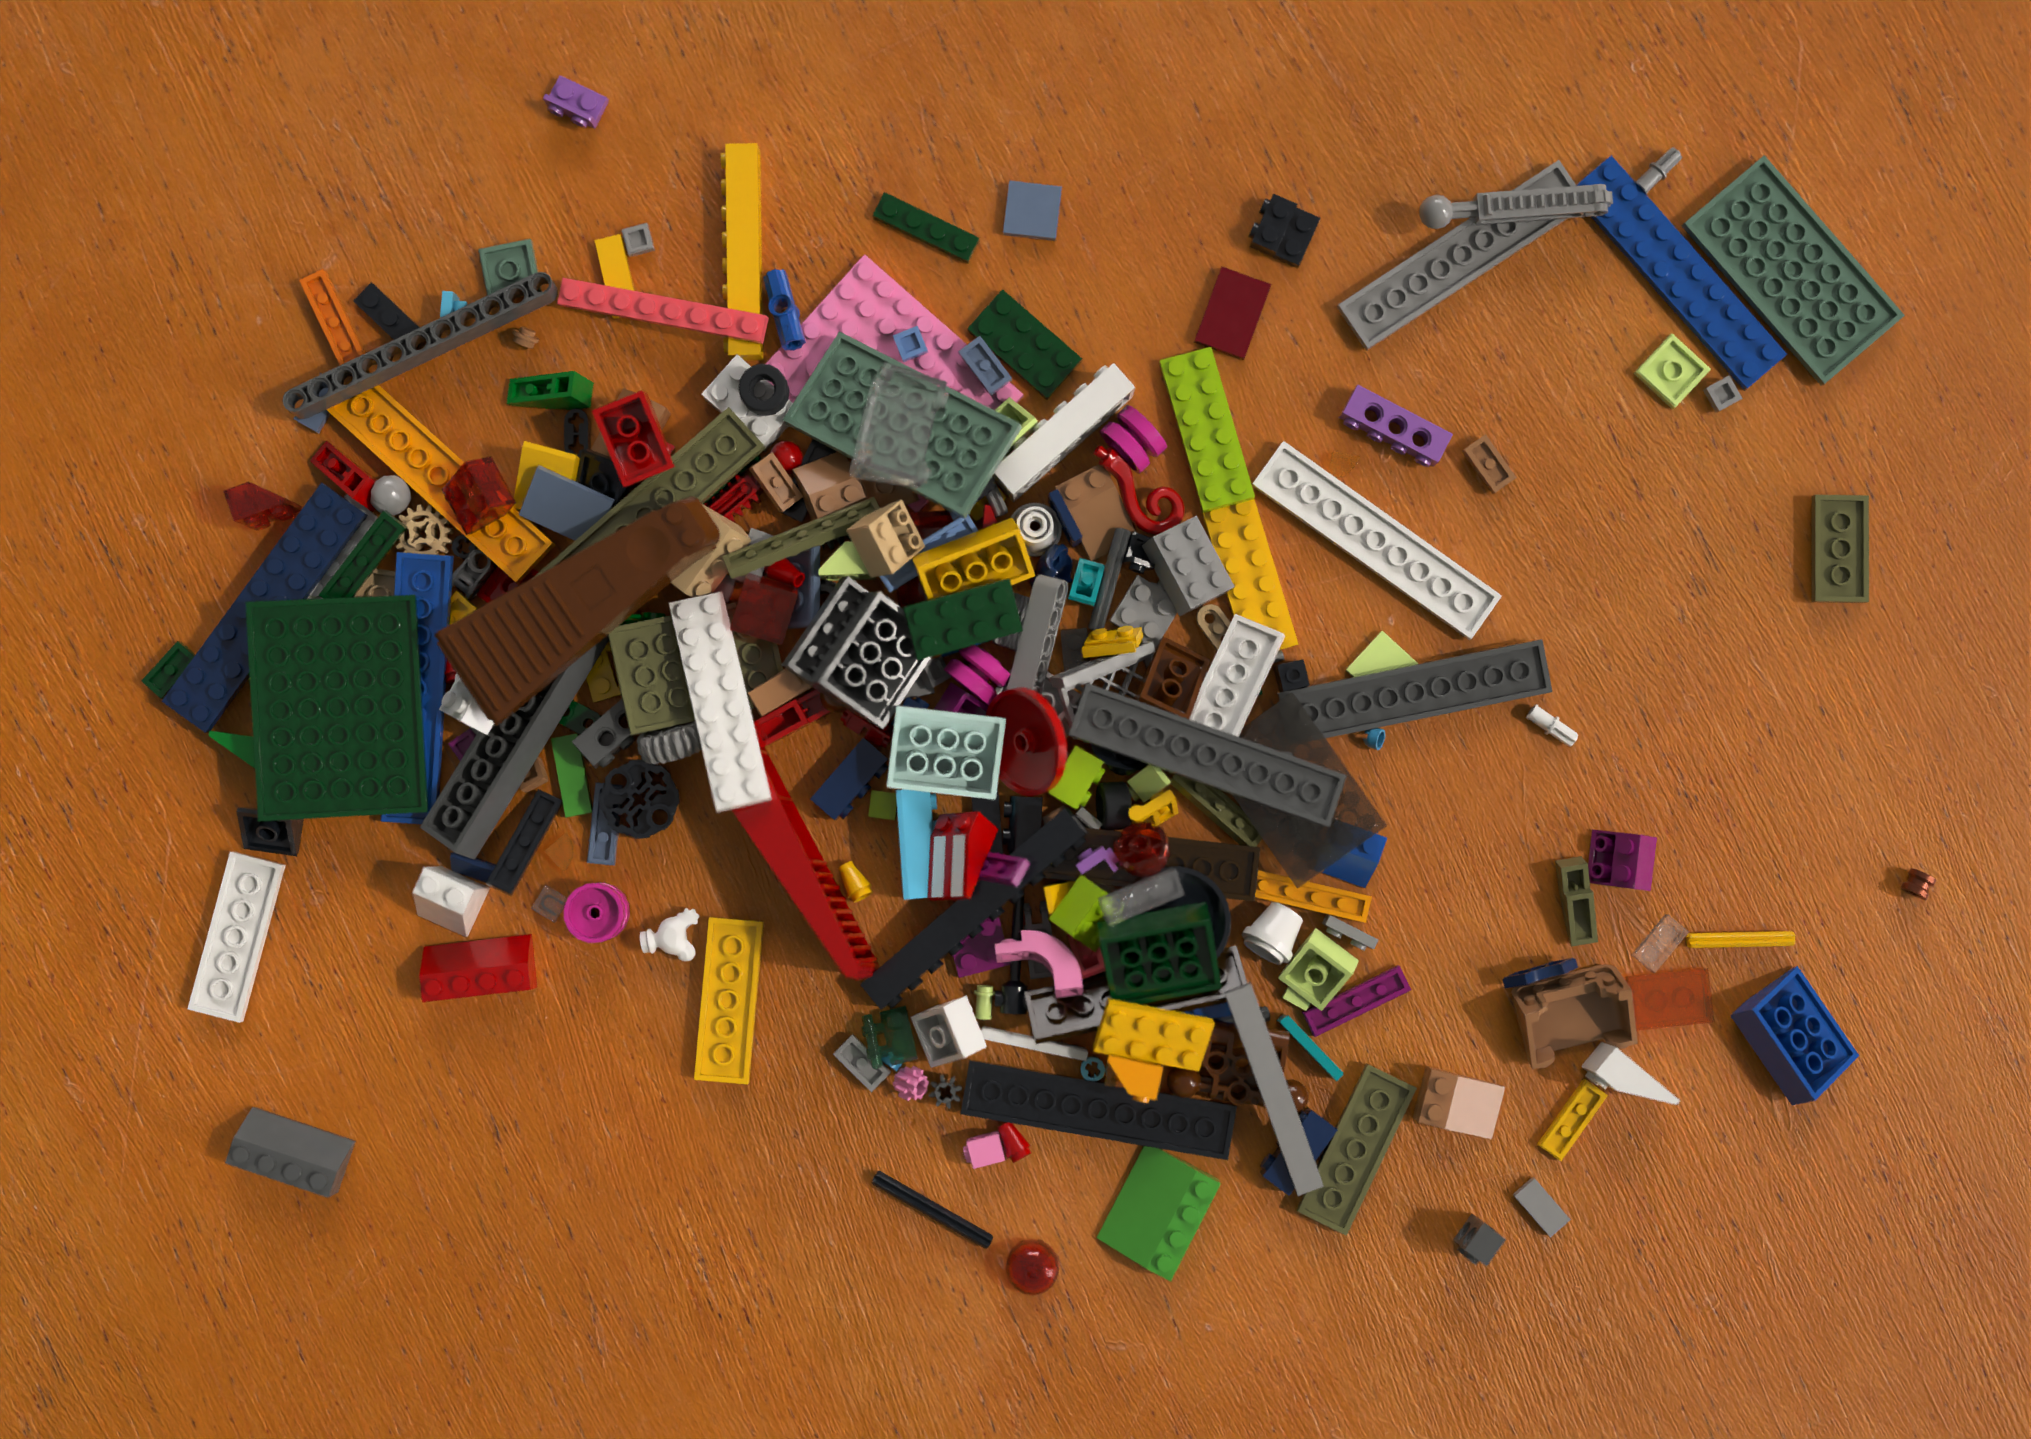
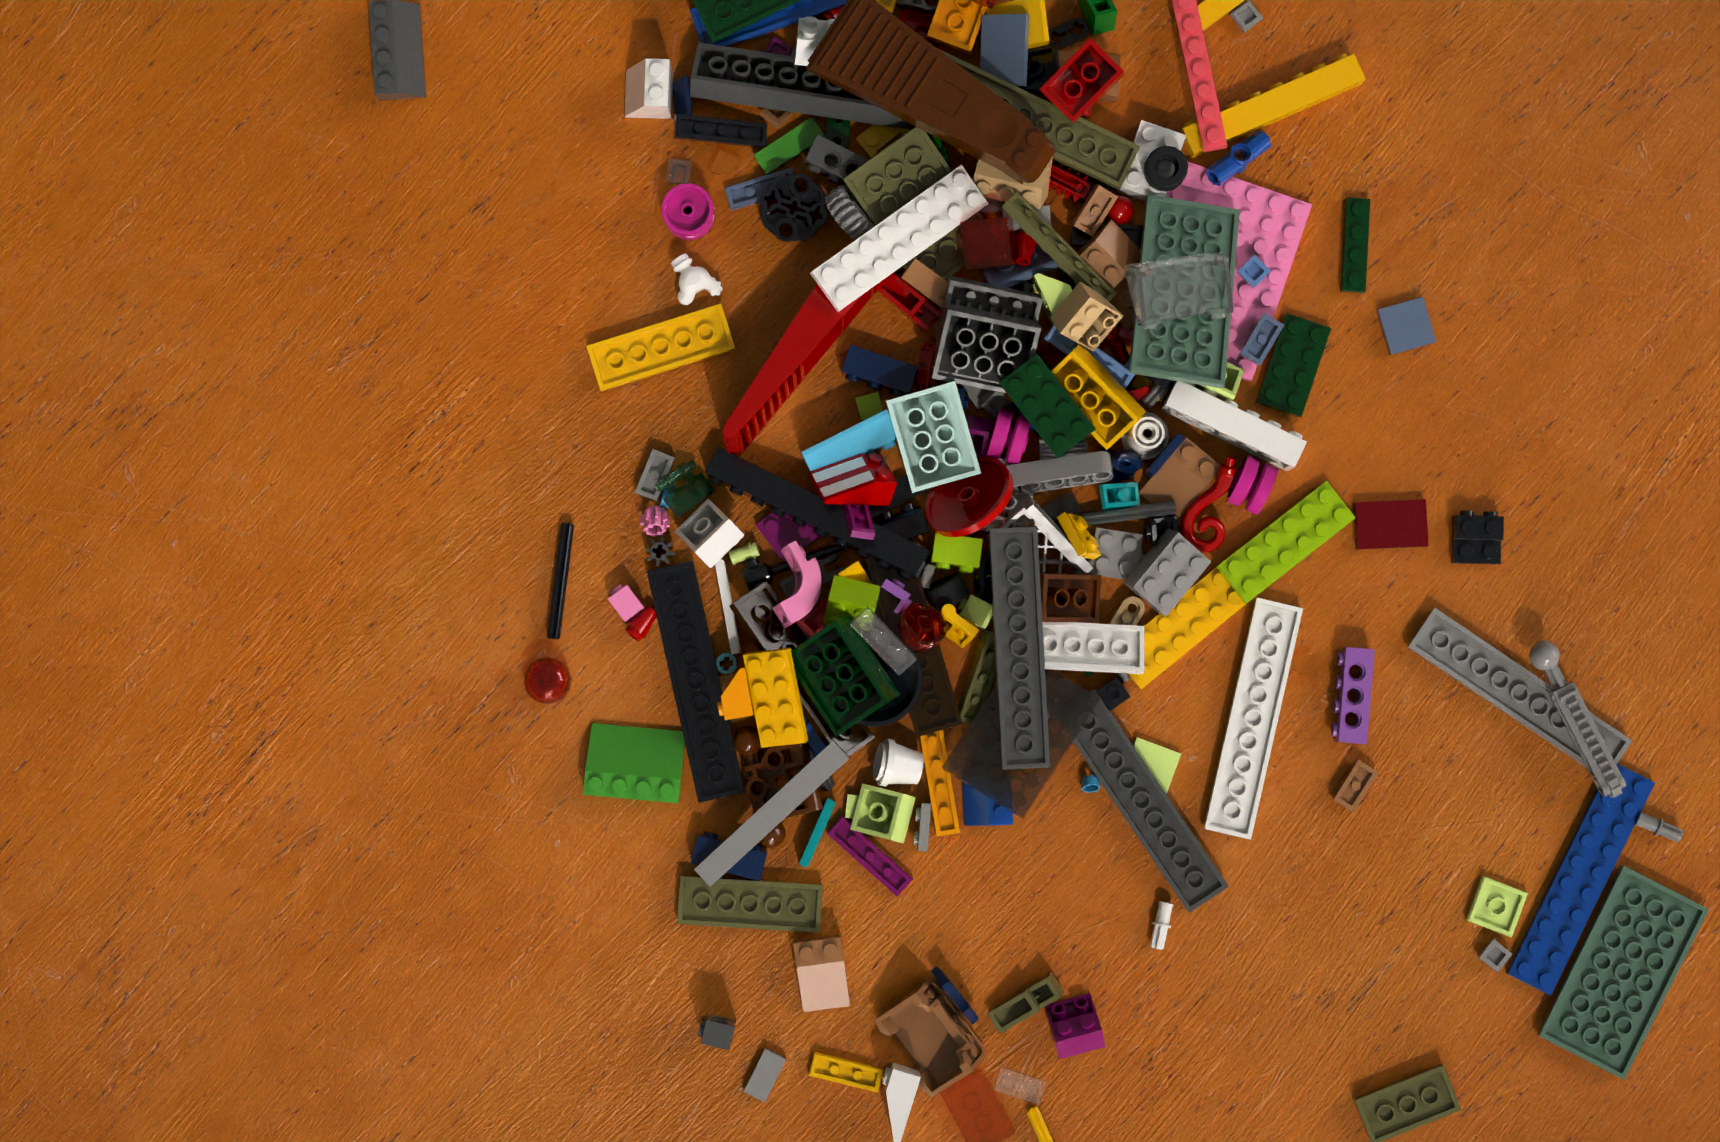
camera: 65 degrees right, 0 degrees up
(477, 968) = (604, 136): red slope -> none
(855, 883) = (797, 409): yellow cone -> none

